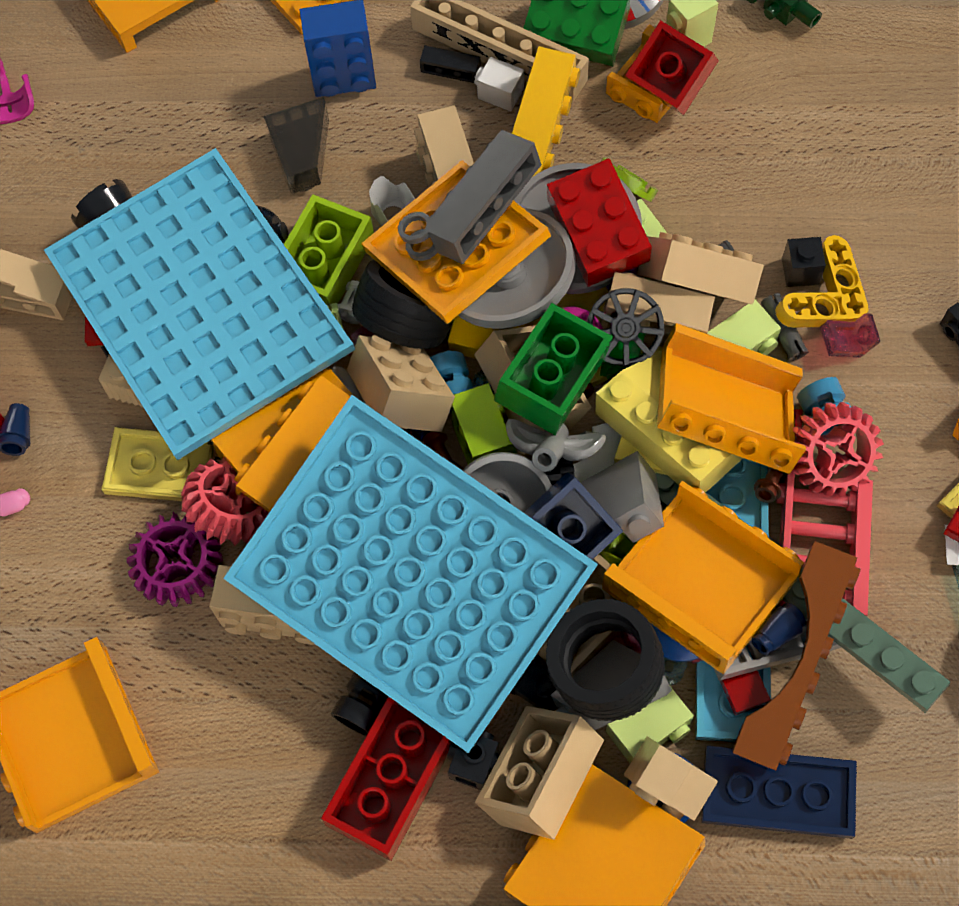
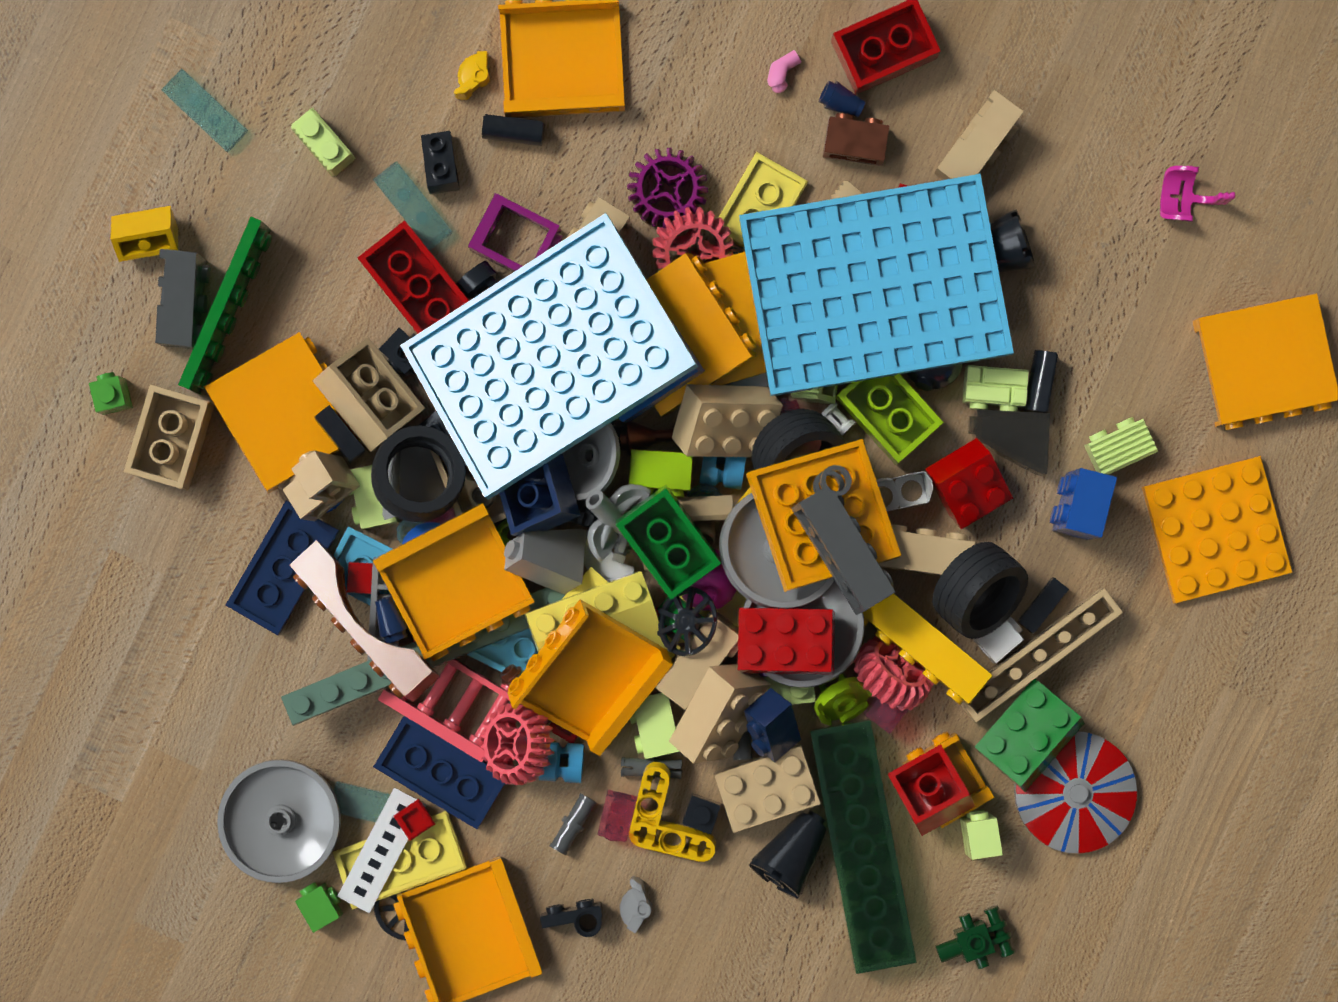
camera: 115 degrees right, 20 degrees up
(53, 397) = (856, 140): none -> copper brick
(121, 829) = (472, 75): none -> yellow piece
(169, 752) = (513, 130): none -> black brick
(238, 140) = (1041, 381): none -> black brick
(238, 818) = (439, 162): none -> black plate
(258, 175) = (995, 387): none -> yellowish green brick
(271, 56) = (1120, 447): none -> yellowish green brick
(292, 732) = (489, 222): none -> magenta window
(298, 833) = (412, 206): none -> clear light blue tile
(361, 153) = (969, 483): none -> red brick
(462, 92) = (980, 590): none -> black tyre
(584, 136) = (891, 676): none -> coral gear
(600, 782) = (339, 434): none -> black piece
(618, 143) = (883, 715): none -> clear pink brick
(686, 217) = (772, 725): none -> dark blue brick
(746, 212) = (765, 789): none -> tan brick
(753, 113) = (862, 846): none -> clear green brick
(796, 167) = (791, 854): none -> black cone
(881, 375) = (573, 824): none -> dark grey pin
(905, 526) = (439, 772): none -> dark blue plate
(925, 287) = (635, 905): none -> light grey piece

